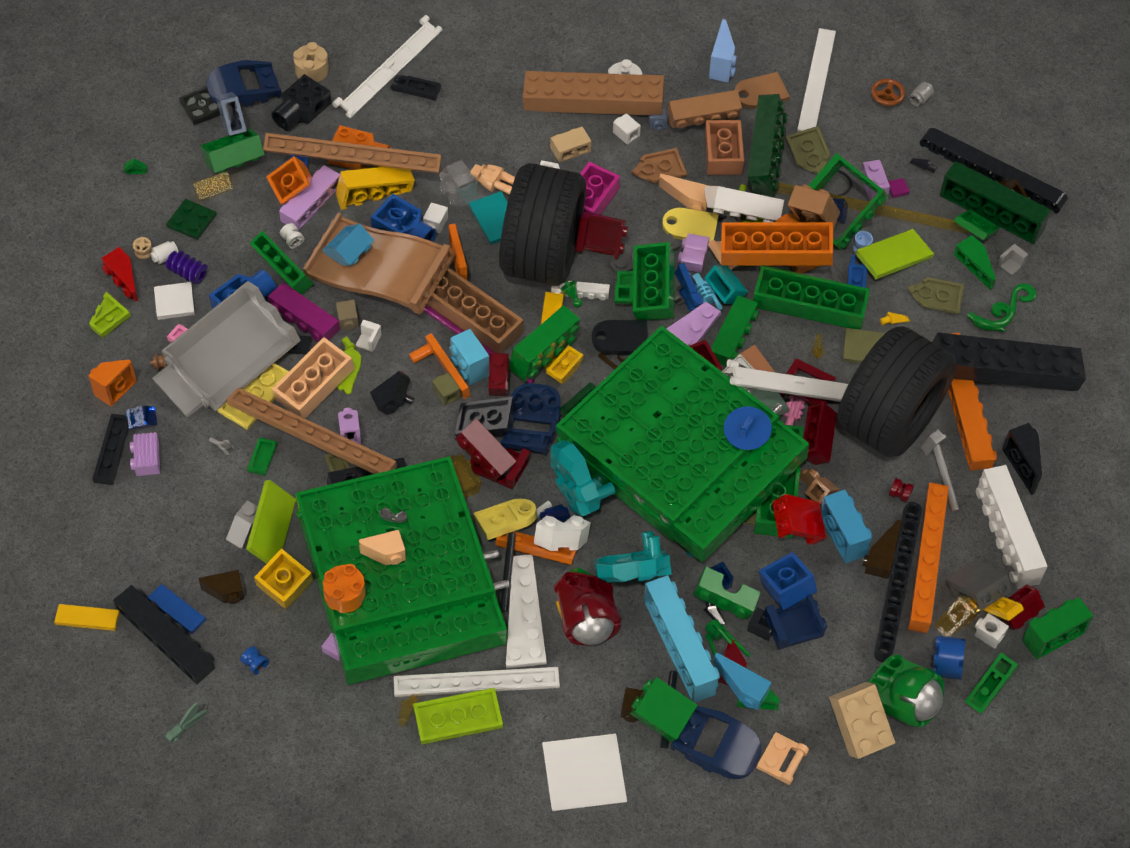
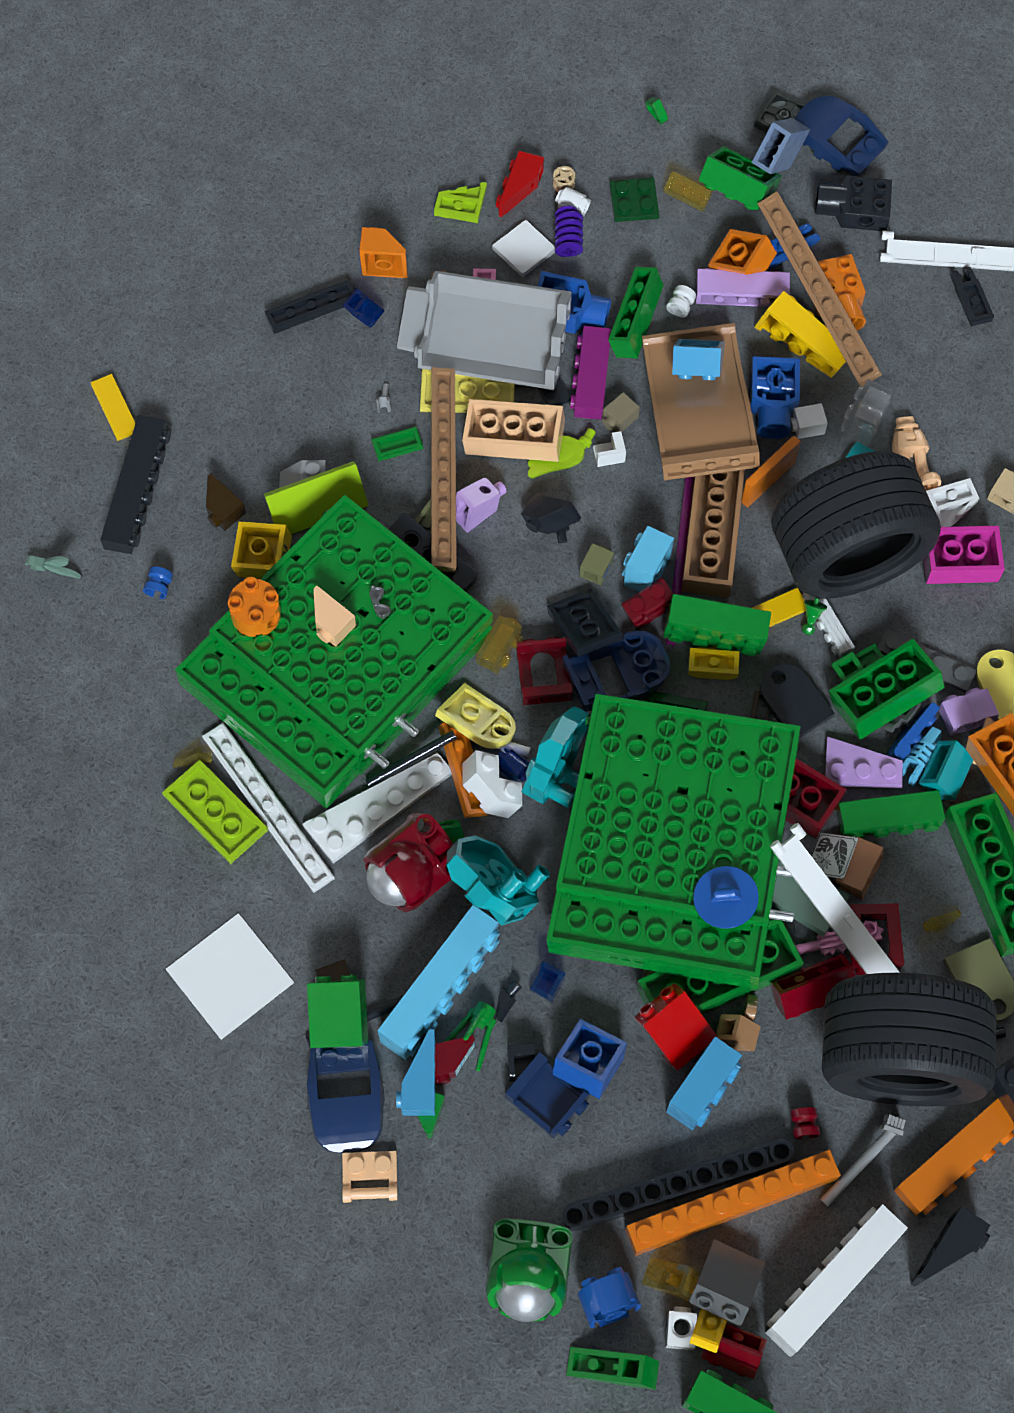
camera: 60 degrees right, 10 degrees up
(146, 454) = (324, 339): lavender brick -> none
(177, 609) = (173, 478): blue tile -> none
(311, 61) = (917, 178): tan brick -> none
(434, 347) = (640, 520): orange piece -> none
(485, 450) = (536, 645): brick -> none
(601, 234) = (910, 596): dark red panel -> none
(710, 589) = (530, 1023): green arch -> none
(862, 720) = (457, 1238): tan brick -> none
(882, 552) = (701, 1145): dark brown slope -> none

